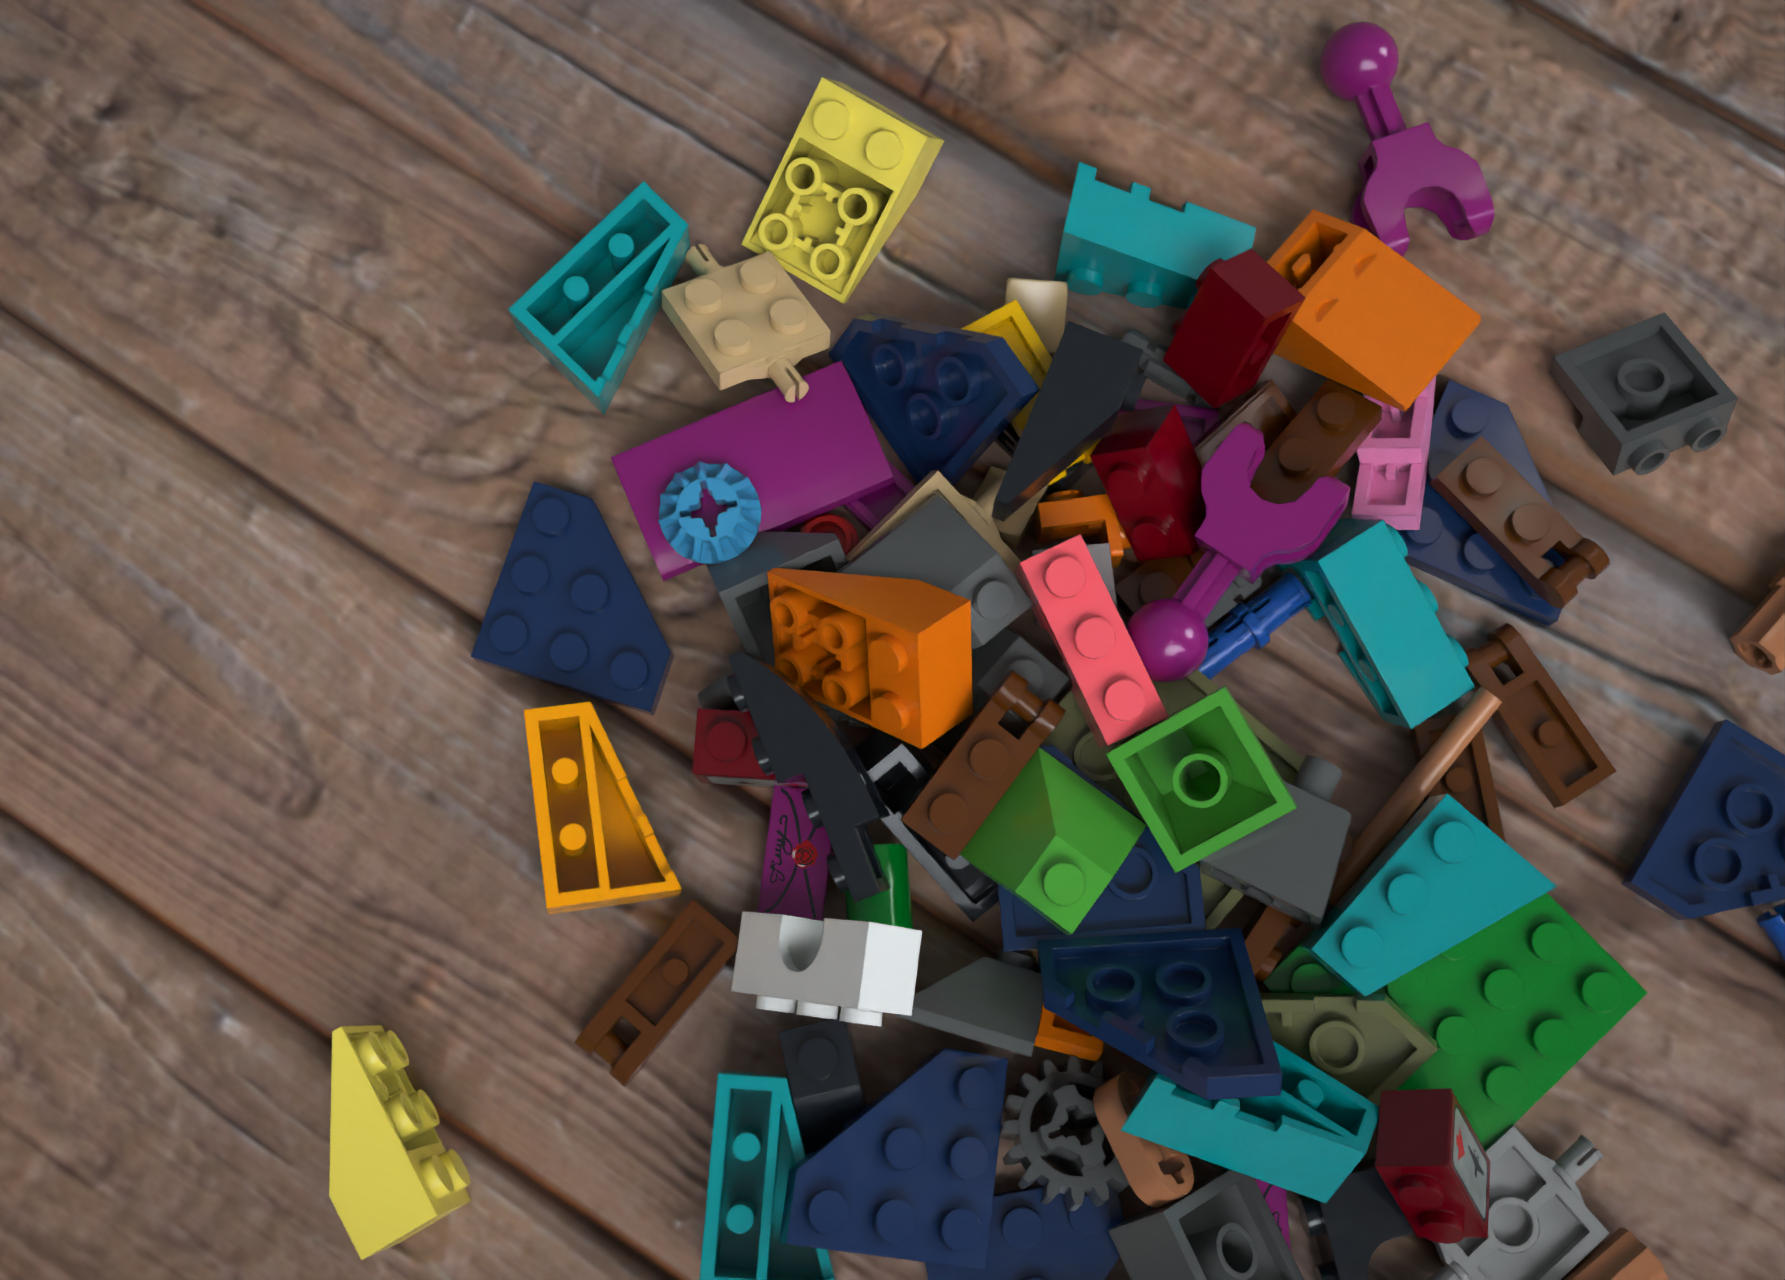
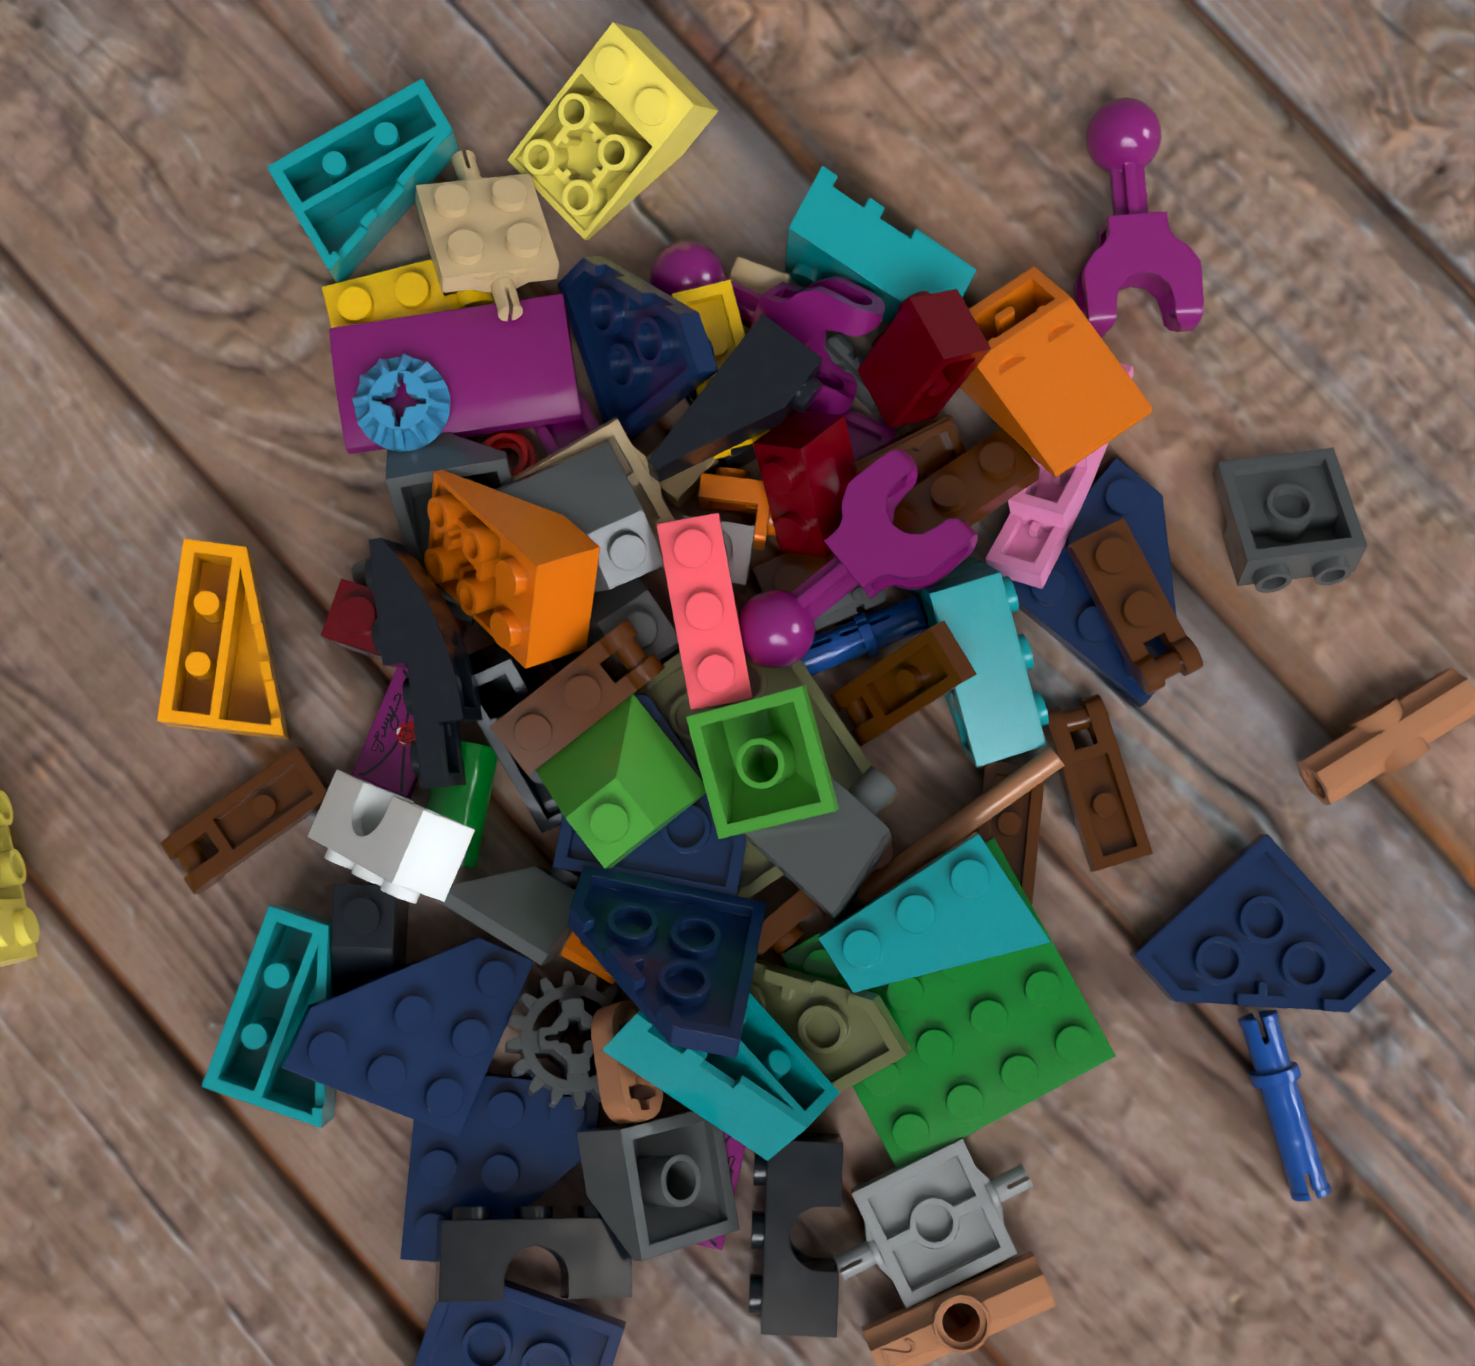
camera: 10 degrees right, 5 degrees up
(573, 608) = (264, 456): dark blue plate -> none
(667, 407) = (395, 294): none -> yellow plate
(1106, 308) = (802, 312): none -> magenta piece
(1313, 661) = (904, 683): none -> reddish brown plate
(1433, 1164) = (872, 1153): dark red brick -> none

